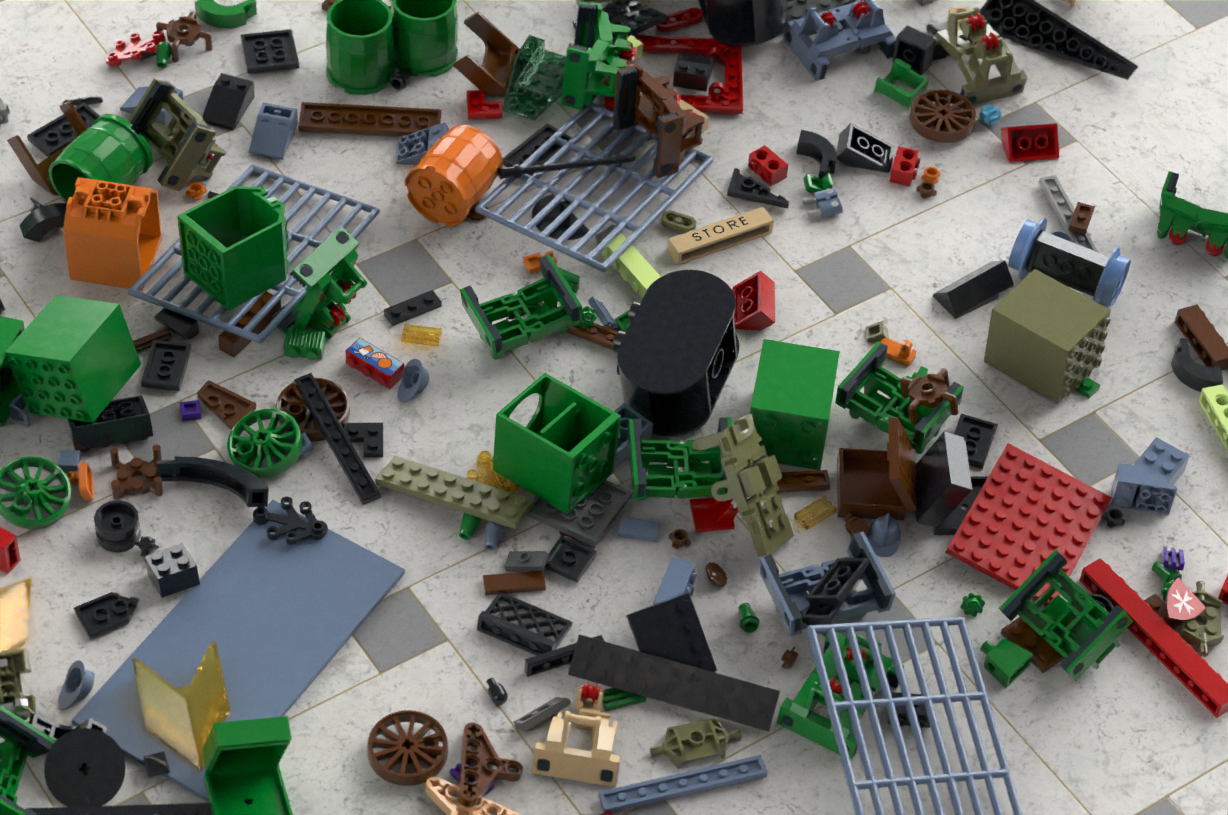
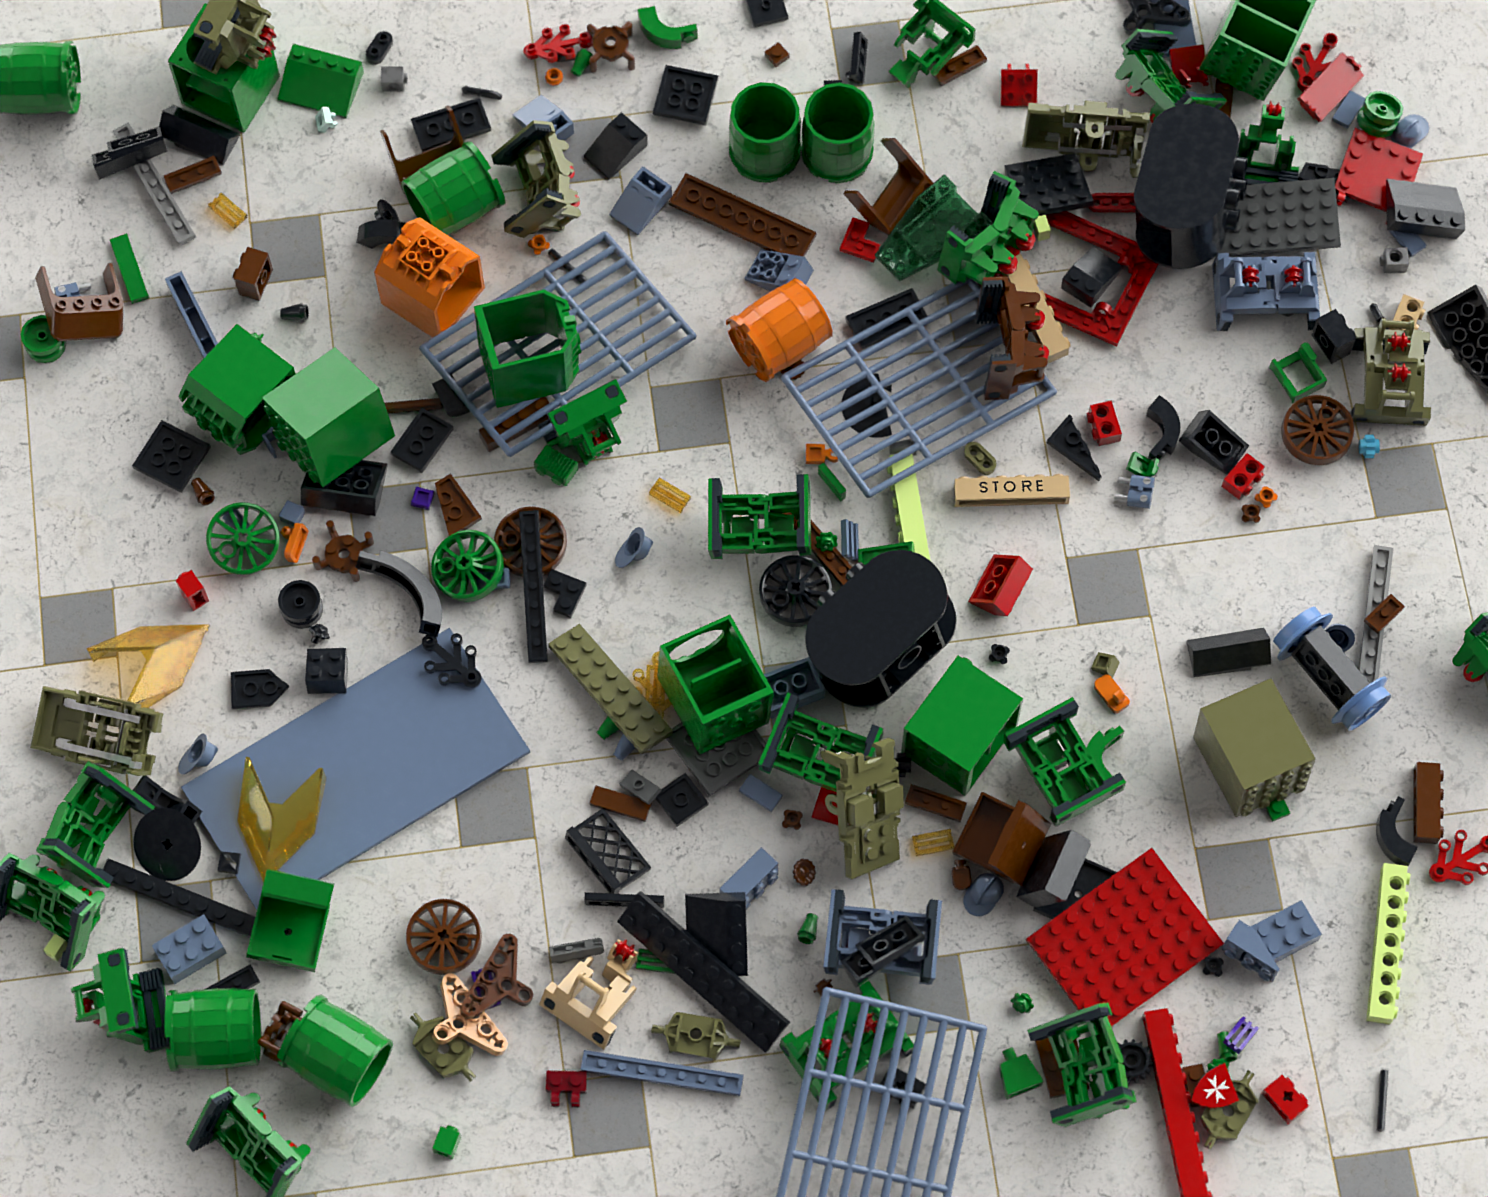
camera: 30 degrees right, 20 degrees up
(143, 71) = (554, 72): none -> orange plate
(374, 363) = (608, 513): brick -> none
(400, 79) = (796, 177): black cone -> none
(412, 307) = (676, 460): black plate -> none
(496, 692) = (549, 911): black cylinder -> none
(517, 171) = (843, 347): black bar -> none
(579, 365) = (785, 590): none -> black piece
(918, 393) = (1091, 783): reddish brown plate -> none
(978, 438) = (1127, 824): black tile -> none
(1030, 142) = (1392, 496): red slope -> none

